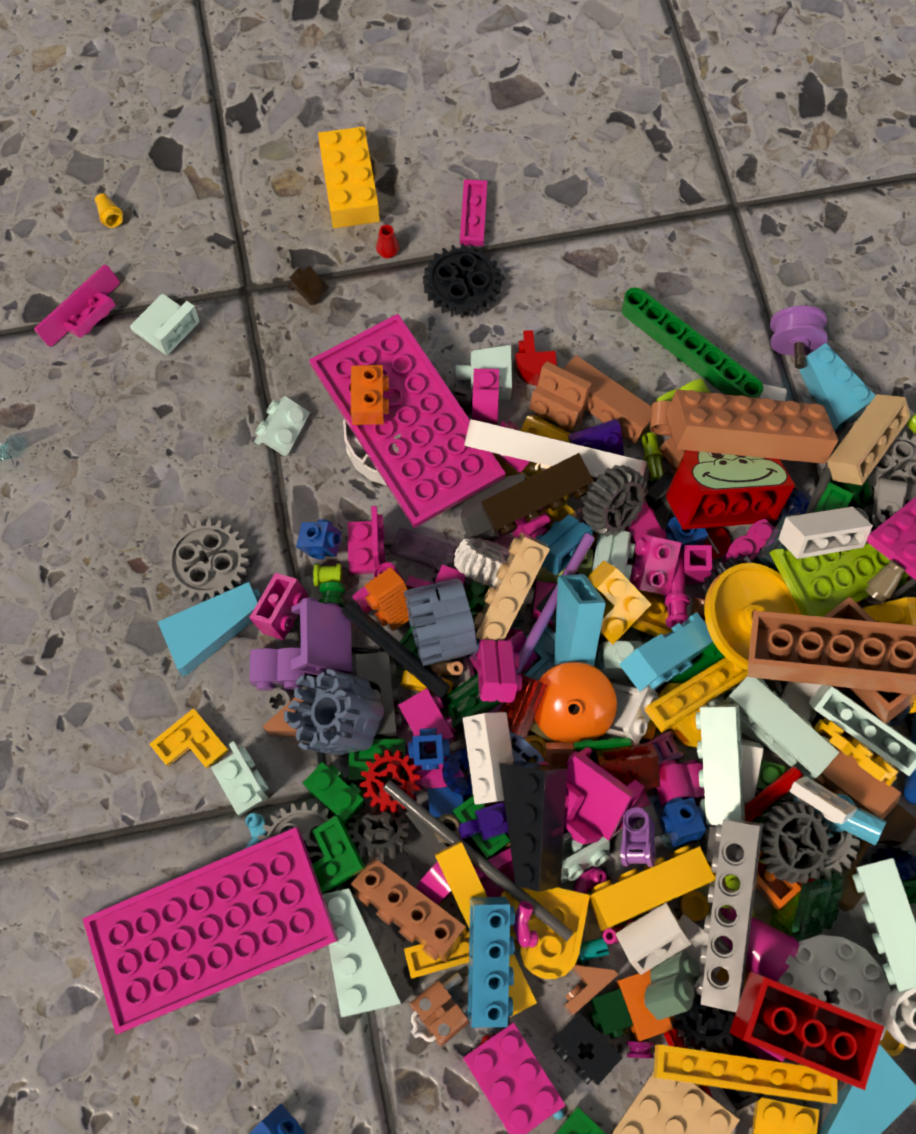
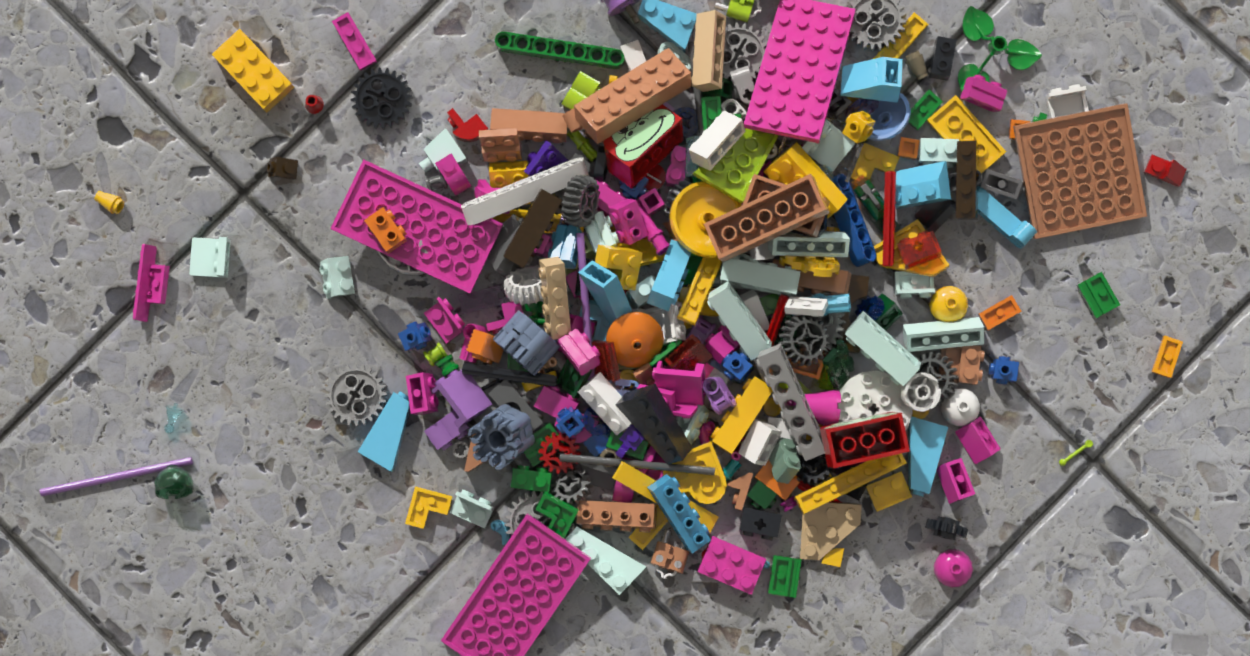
camera: 30 degrees left, 15 degrees up
(523, 934) = (689, 487): dark pink arm -> none
(885, 581) = (769, 148): dark tan cone -> none

